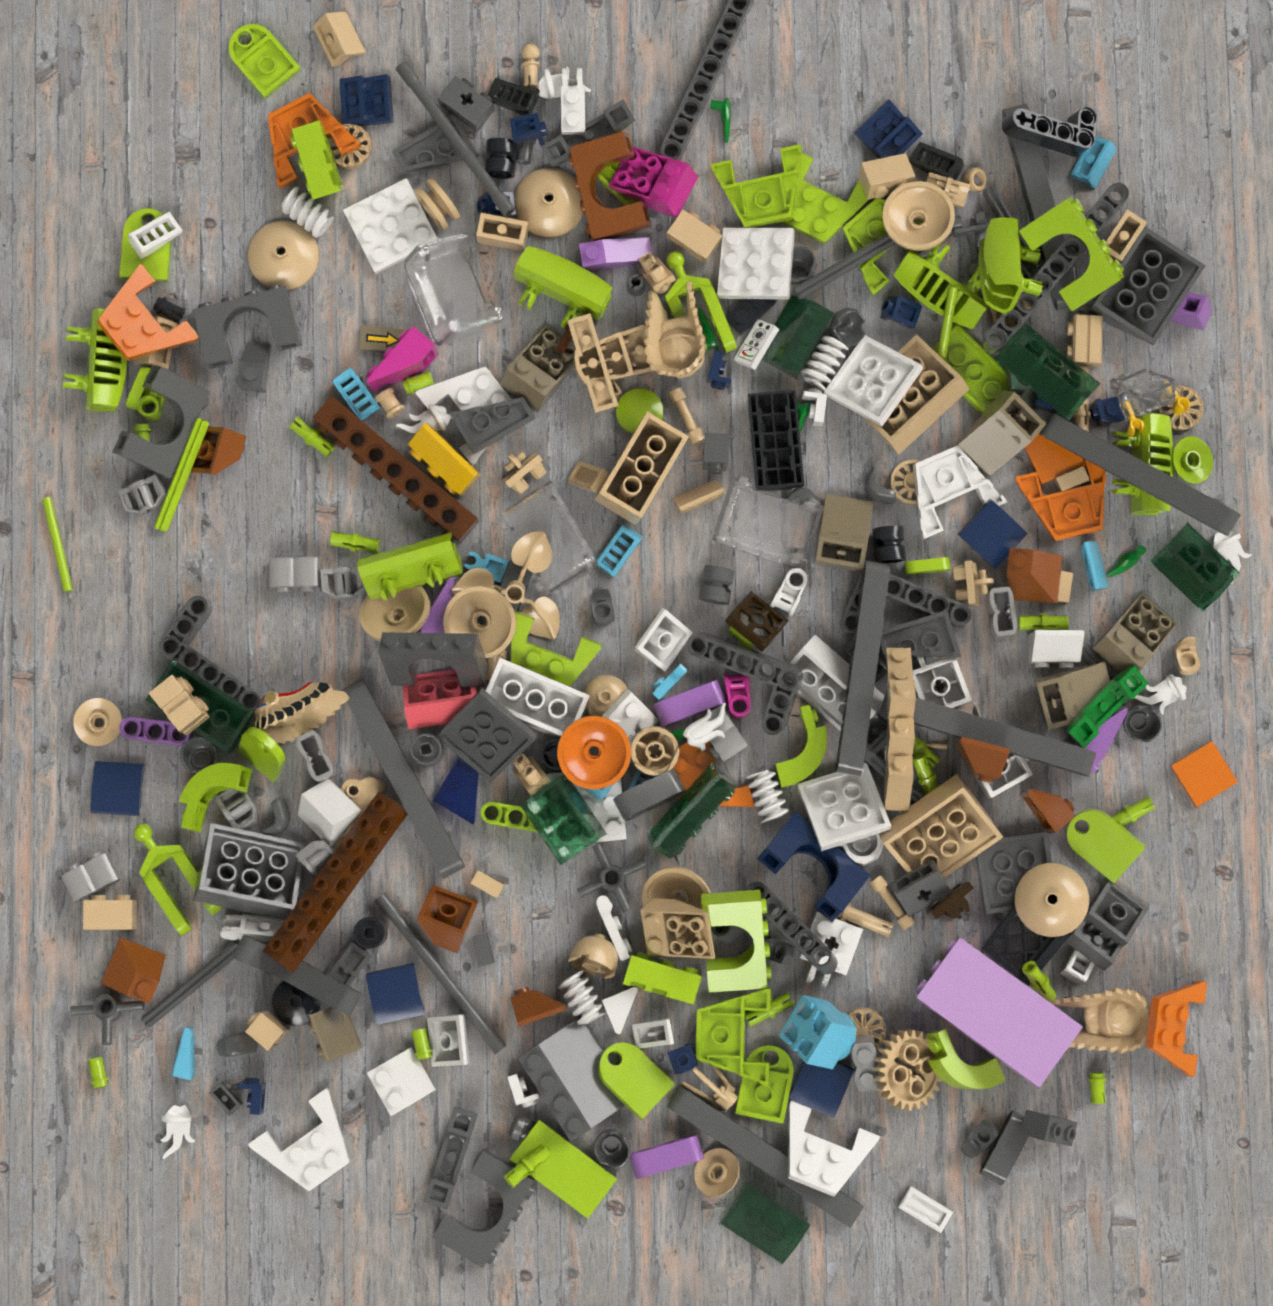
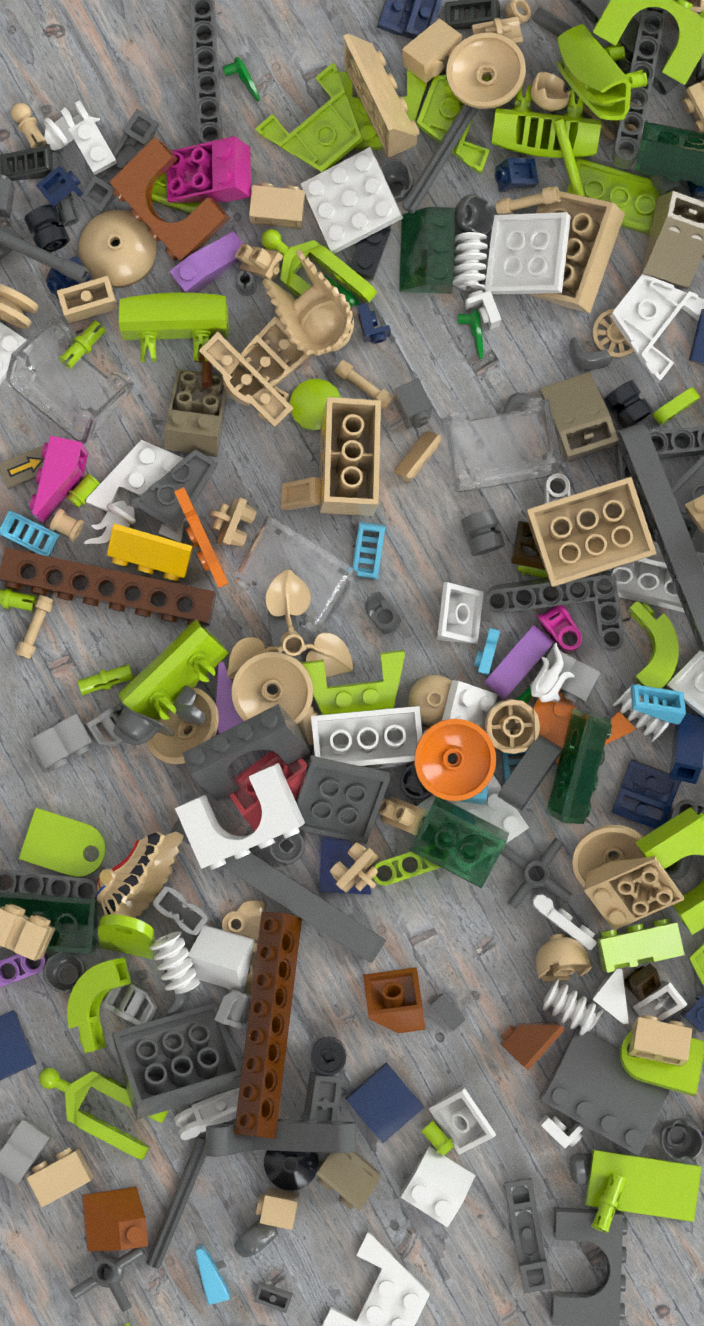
camera: 25 degrees left, 0 degrees up
(250, 653) = (61, 844): none -> lime tile
(256, 1099) = (304, 1282): dark blue bracket -> none
(288, 794) = (175, 962): none -> white piece
(337, 457) = (26, 647): none -> tan bar
(358, 594) = (137, 728): none -> dark grey piece
(369, 717) = (215, 844): none -> white arch
(392, 912) = (495, 1091): dark grey piece -> none
(404, 598) = (185, 709): none -> dark grey hair
(471, 802) = (348, 877): none -> tan hips
(479, 265) = (82, 344): none -> lime pin
(487, 884) = (417, 945): tan piece -> none
(488, 468) = (199, 538): none -> orange wing
(492, 563) = (255, 628): medium azure plate -> none
(637, 1061) = (660, 1040): none -> tan brick
(650, 1008) = (643, 981): none -> dark brown bracket
(733, 862) = (645, 795): none -> dark blue slope
(756, 344) = (394, 279): white tile -> none
(775, 440) = (464, 361): black piece -> none
(790, 794) = (672, 703): none -> medium azure slope
(799, 630) = (590, 532): none -> tan slope
(822, 191) = (379, 96): none -> tan slope
(914, 343) = (548, 196): none -> tan bar
(960, 259) = (548, 92): none -> tan hair
(969, 232) = (547, 53): dark grey bar -> none

